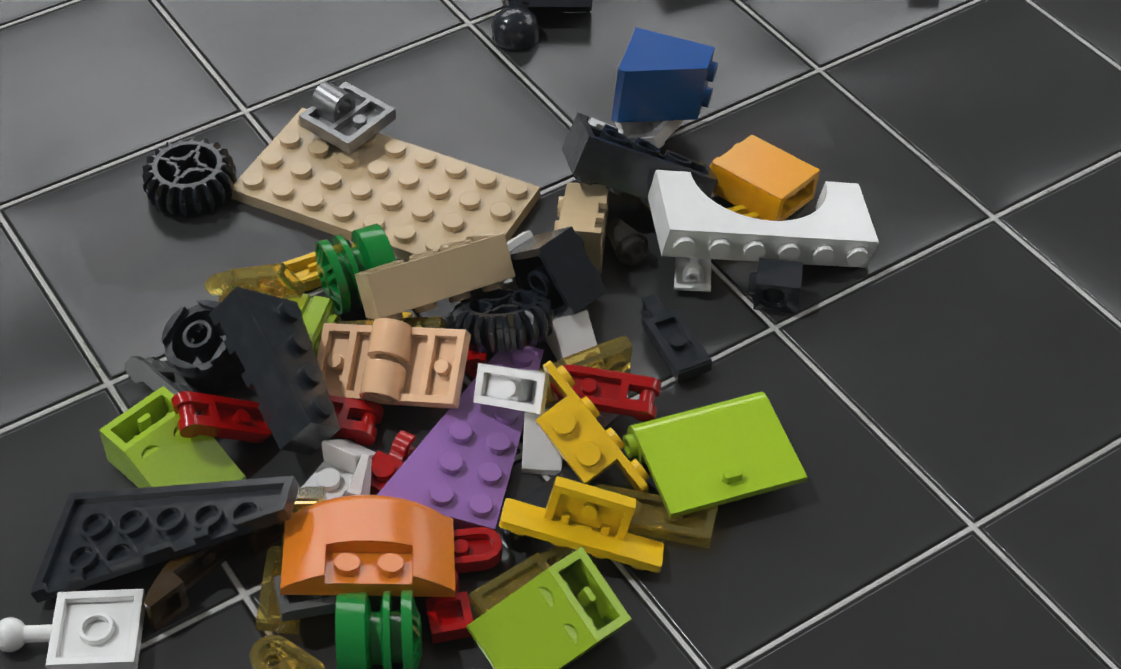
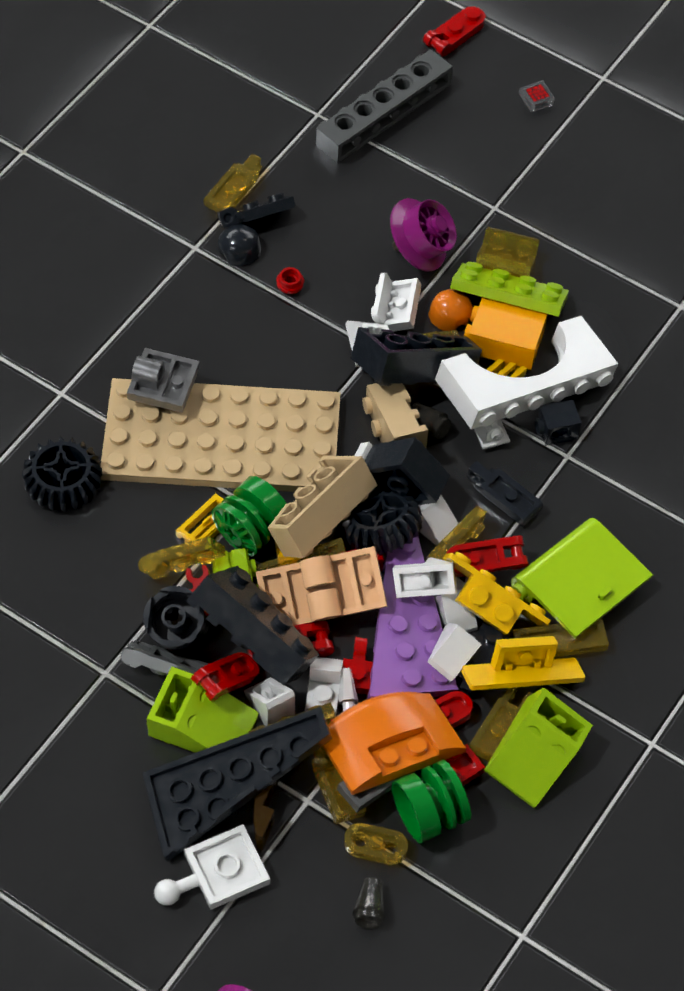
camera: 25 degrees left, 10 degrees up
(263, 463) = (271, 700): none -> white slope
(504, 478) = (453, 650): none -> white slope
(549, 72) = (290, 275): none -> red plate
(663, 79) = (401, 271): blue slope -> none
(710, 141) = (450, 309): none -> orange hair
(732, 52) = (422, 232): none -> magenta piece
(784, 136) = (513, 290): none -> lime plate
(808, 107) = (508, 252): none -> clear yellow bracket

